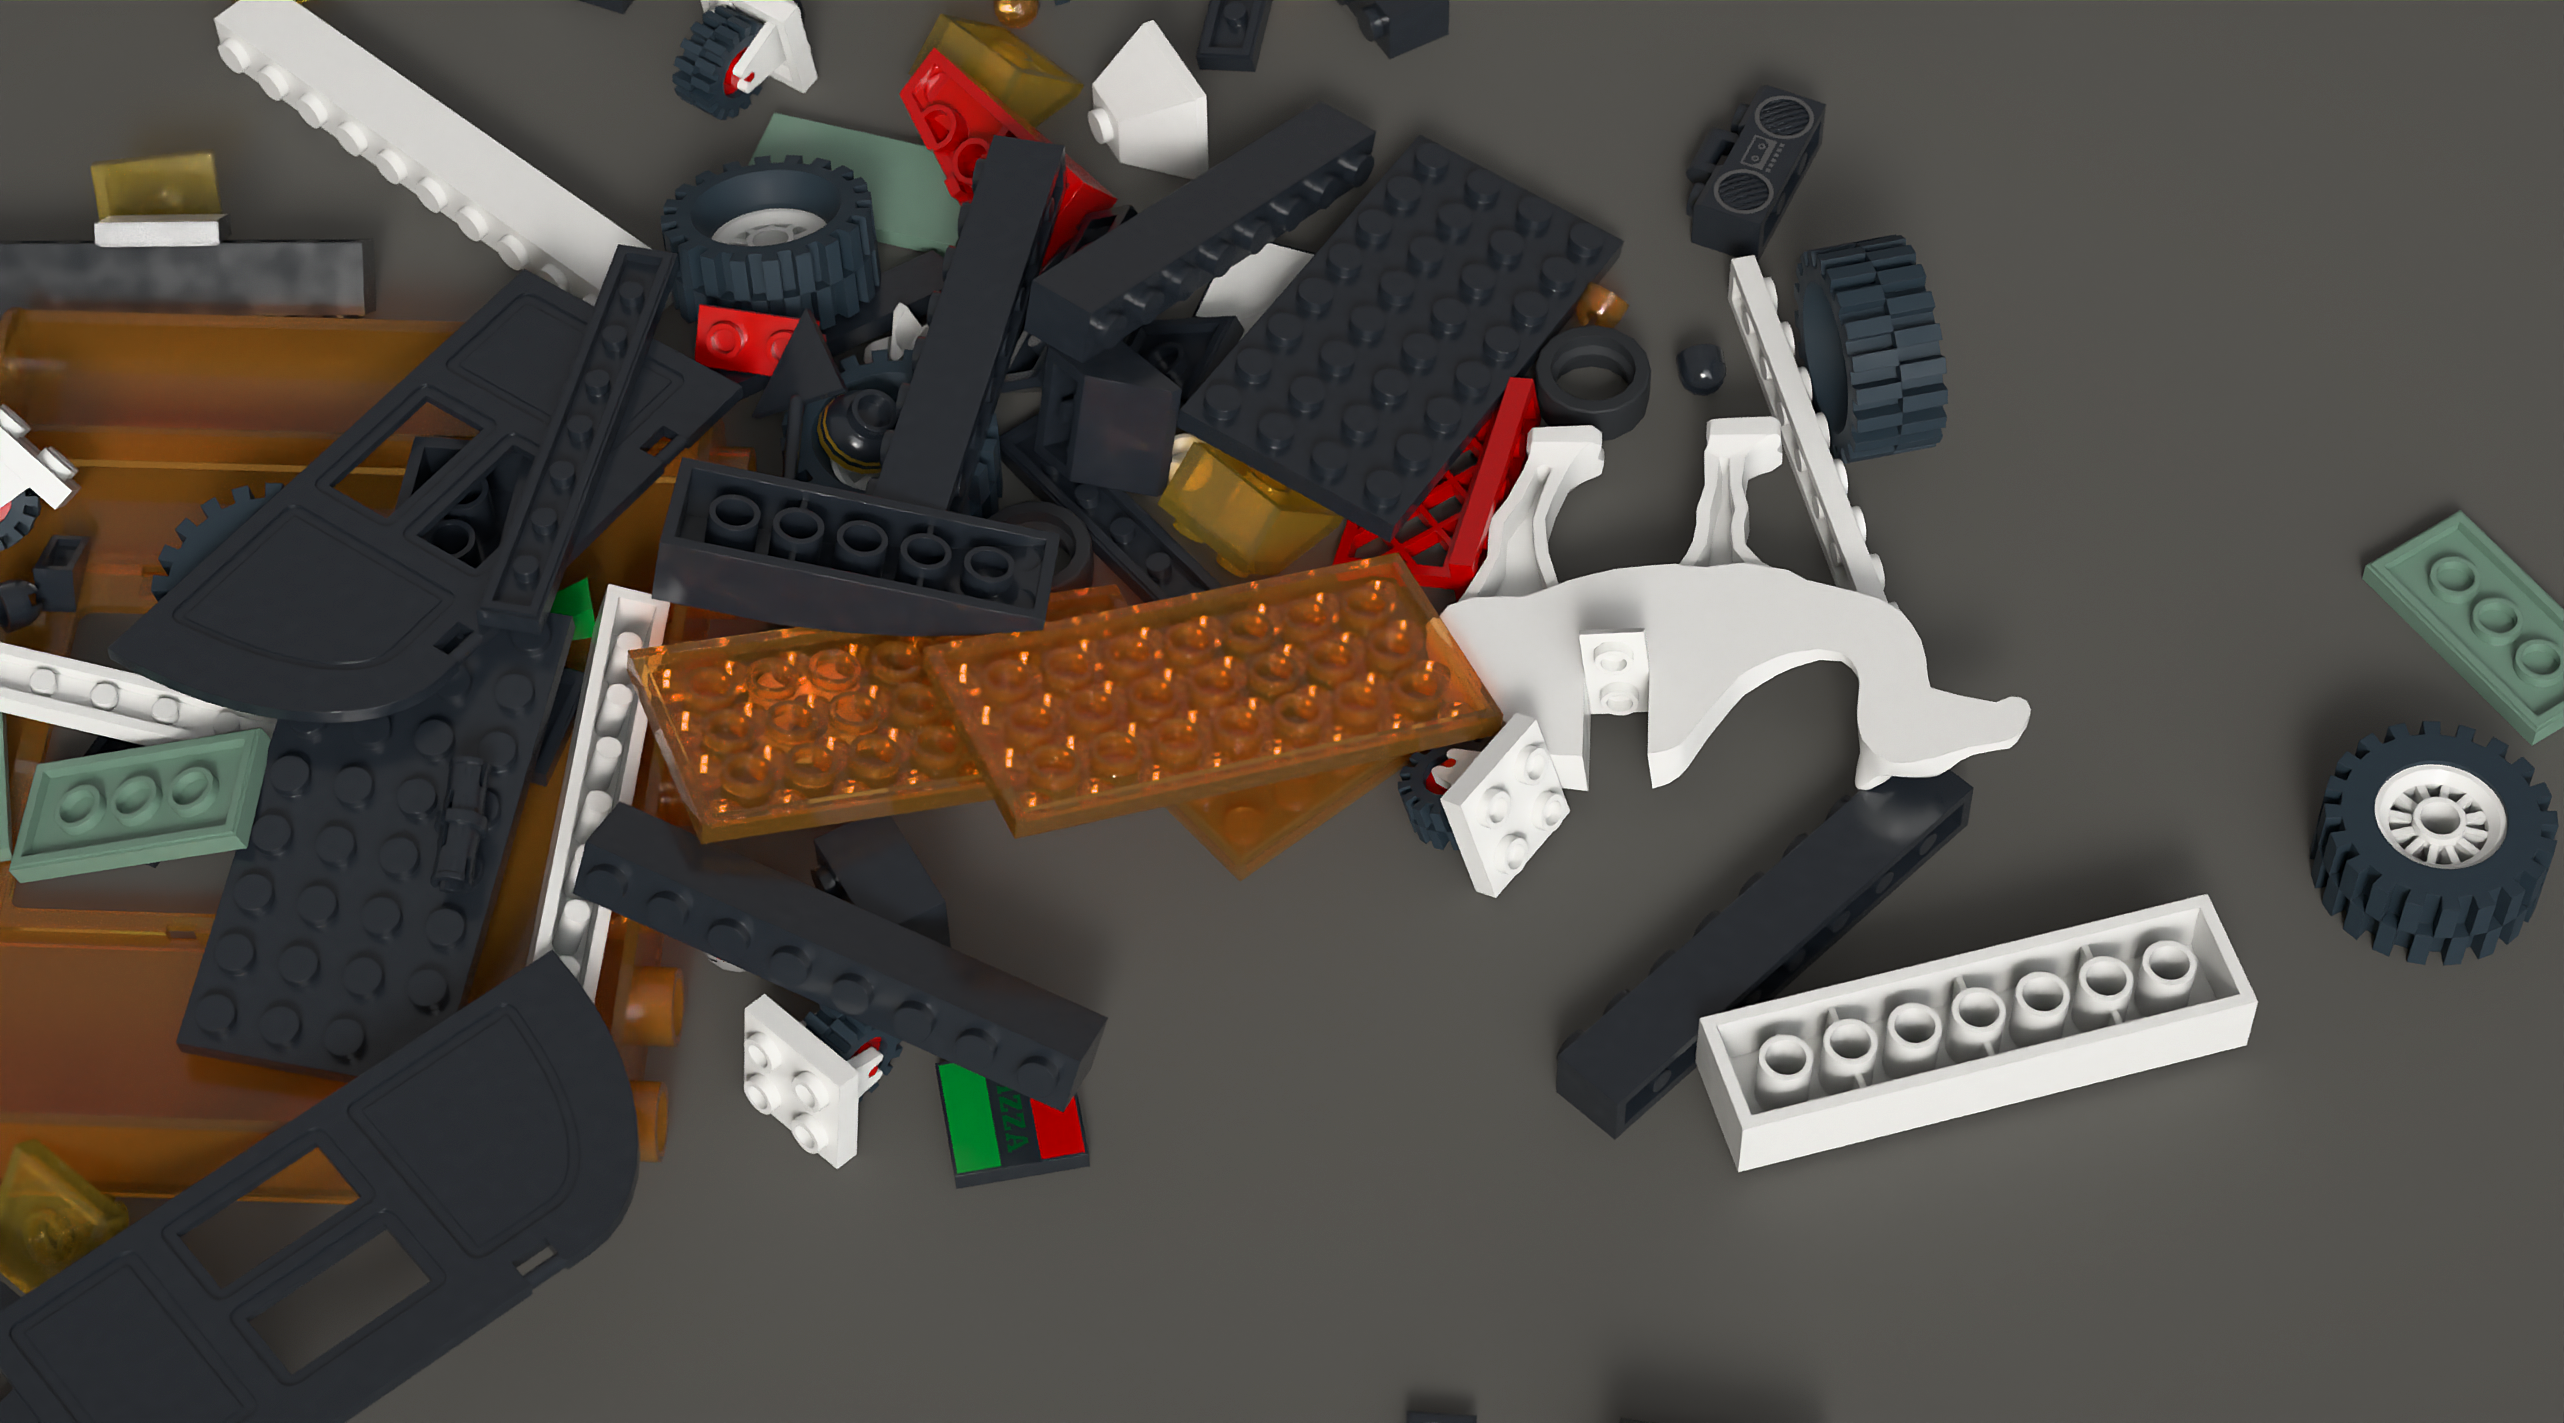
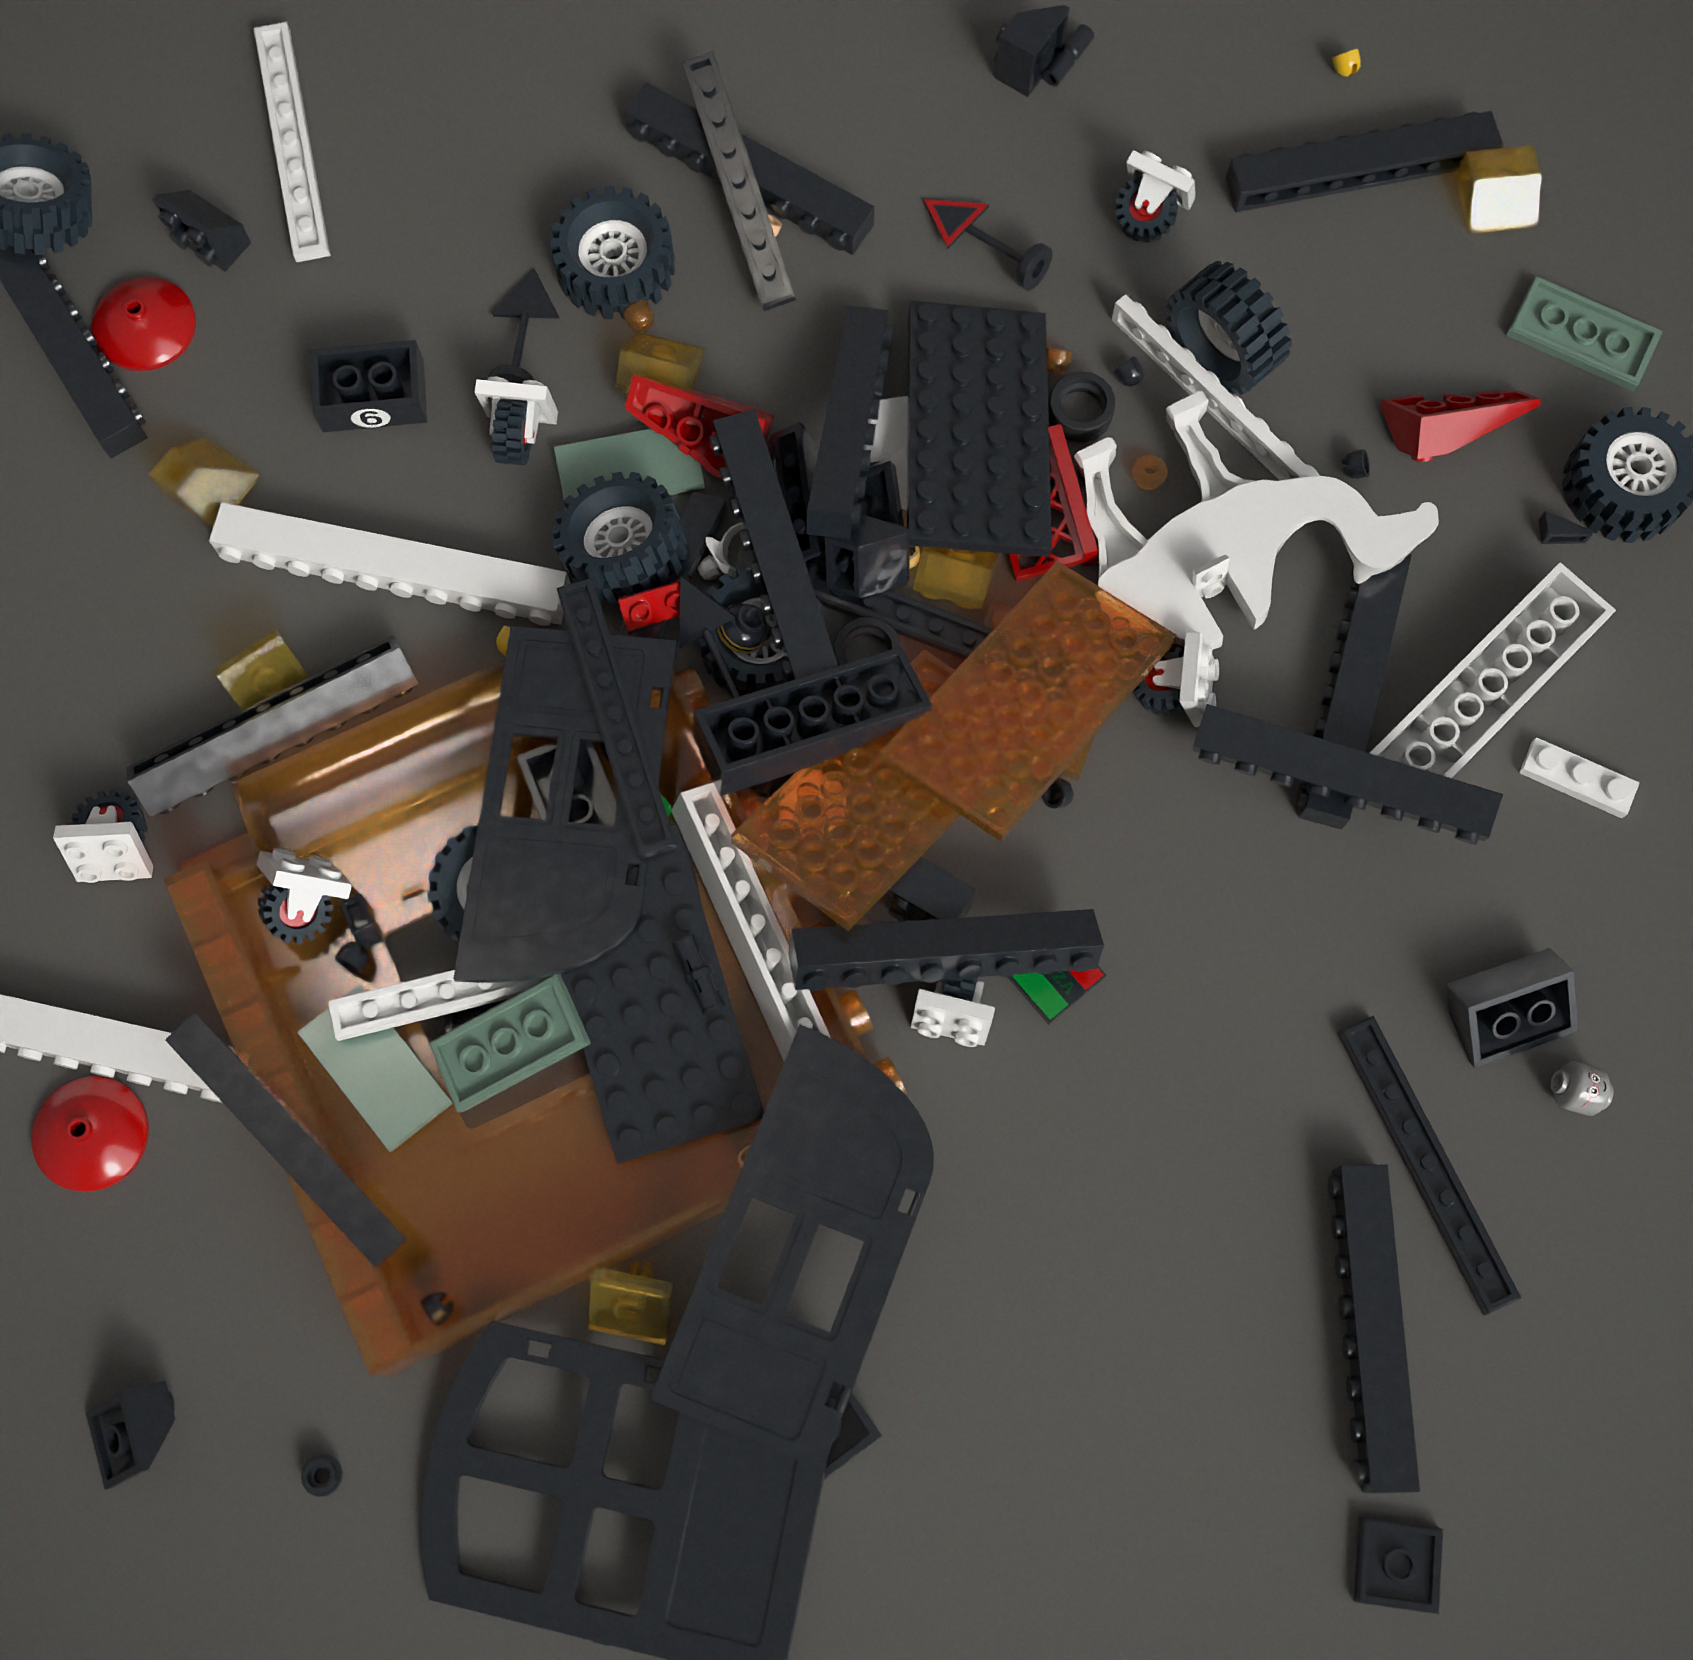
camera: 30 degrees left, 20 degrees up
(162, 230) = (284, 694): tile -> none
(1151, 108) = (761, 350): white slope -> none
(1191, 874) = (1057, 786): none -> black hinge
(1640, 167) = (956, 217): none -> black piece
(1640, 527) = (1146, 480): none -> clear orange plate
(1645, 1023) = (1347, 773): none -> black brick
(1767, 158) = (1088, 220): black piece -> none
(1885, 156) = (1151, 197): none -> plate
(1984, 643) = (1358, 464): none -> black hinge
(2062, 1244) = (1579, 778): none -> white plate
(2143, 641) = (1440, 427): none -> red wedge
(2267, 881) = (1561, 531): none -> black piece
(2273, 243) = (1358, 161): none -> black brick
(2338, 103) = (1347, 63): none -> yellow hinge
(2475, 366) = (1500, 188): none -> clear yellow slope

